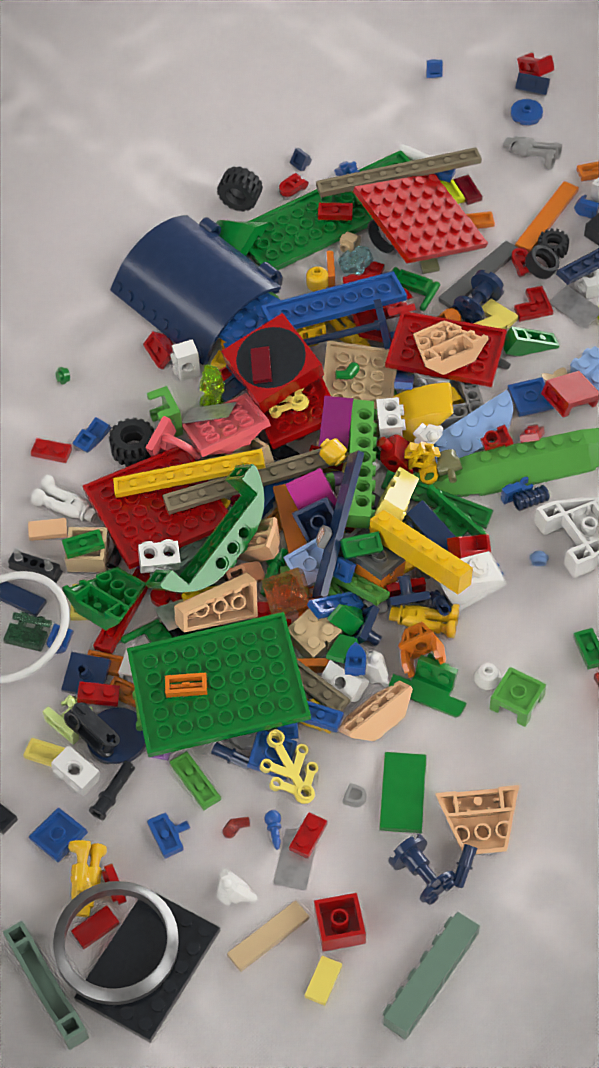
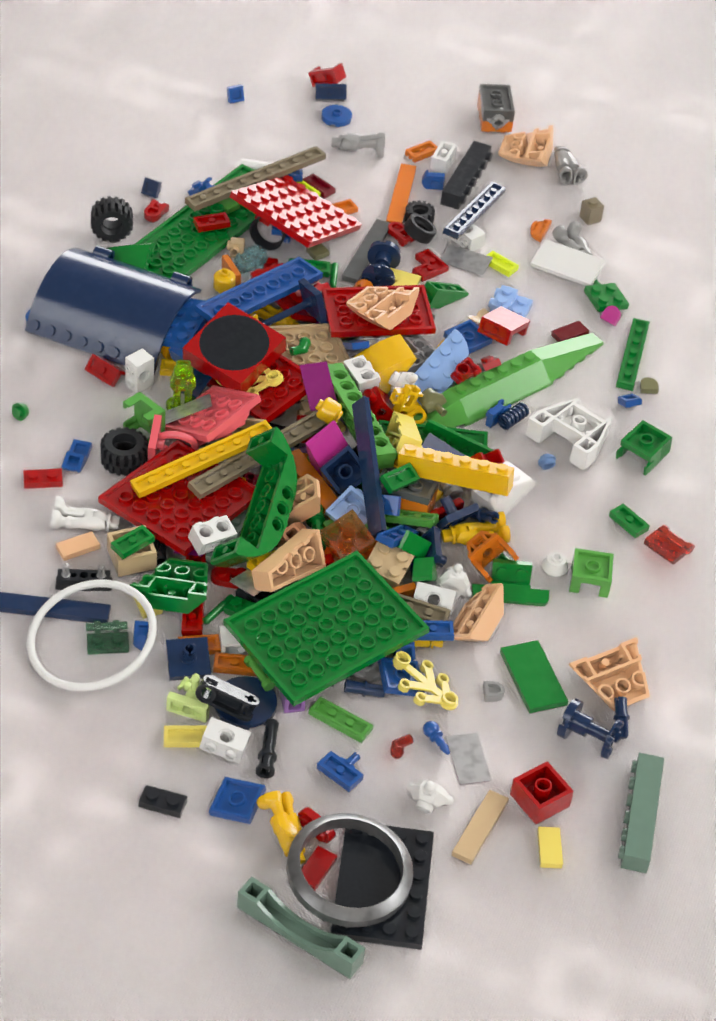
camera: 30 degrees left, 10 degrees down
(98, 694) = (218, 667): red plate -> none
(186, 687) = (302, 636): orange tile -> none
(261, 365) = (229, 350): dark red tile -> none
(308, 835) = (470, 734): red plate -> none
(323, 536) = (359, 480): light grey tile -> none
(355, 660) = (443, 574): blue plate -> none

